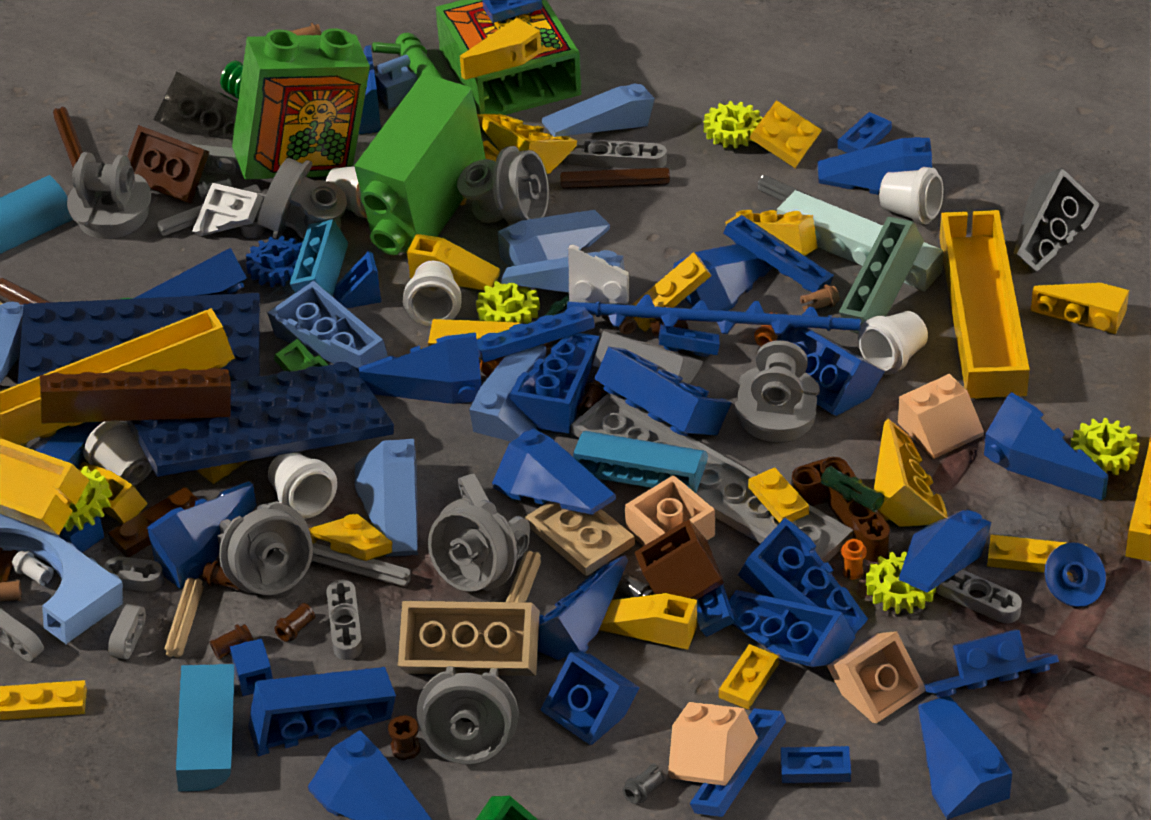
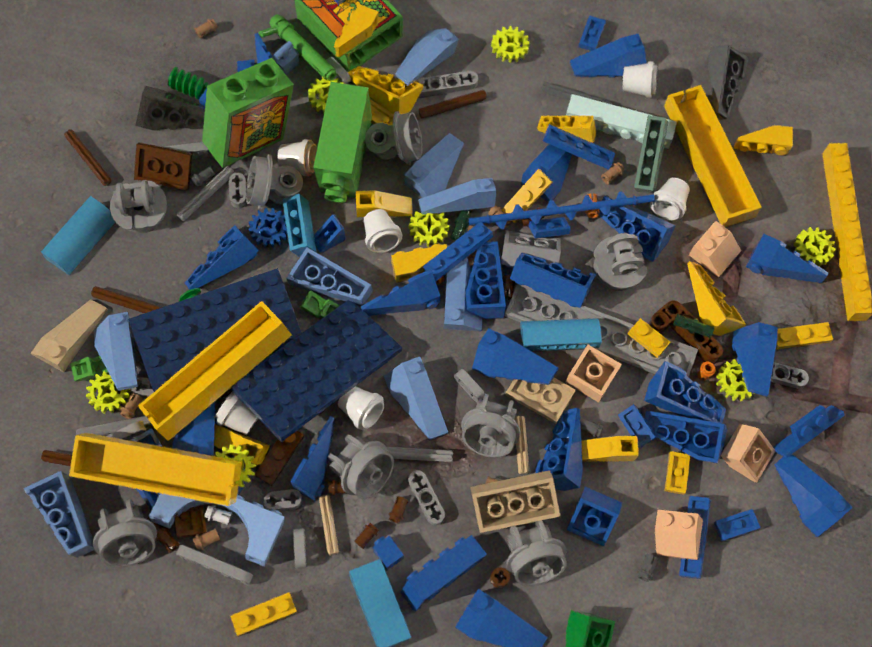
camera: 25 degrees left, 25 degrees up
(135, 395) = (244, 389): reddish brown brick -> none
(226, 209) = (220, 194): white wing -> none
(354, 537) = (408, 437): yellow wing -> none
(595, 280) = (483, 202): white wing -> none
(680, 563) = (615, 411): reddish brown slope -> none
(785, 134) = (545, 45): yellow plate -> none
(1086, 570) = (831, 348): blue dish -> none

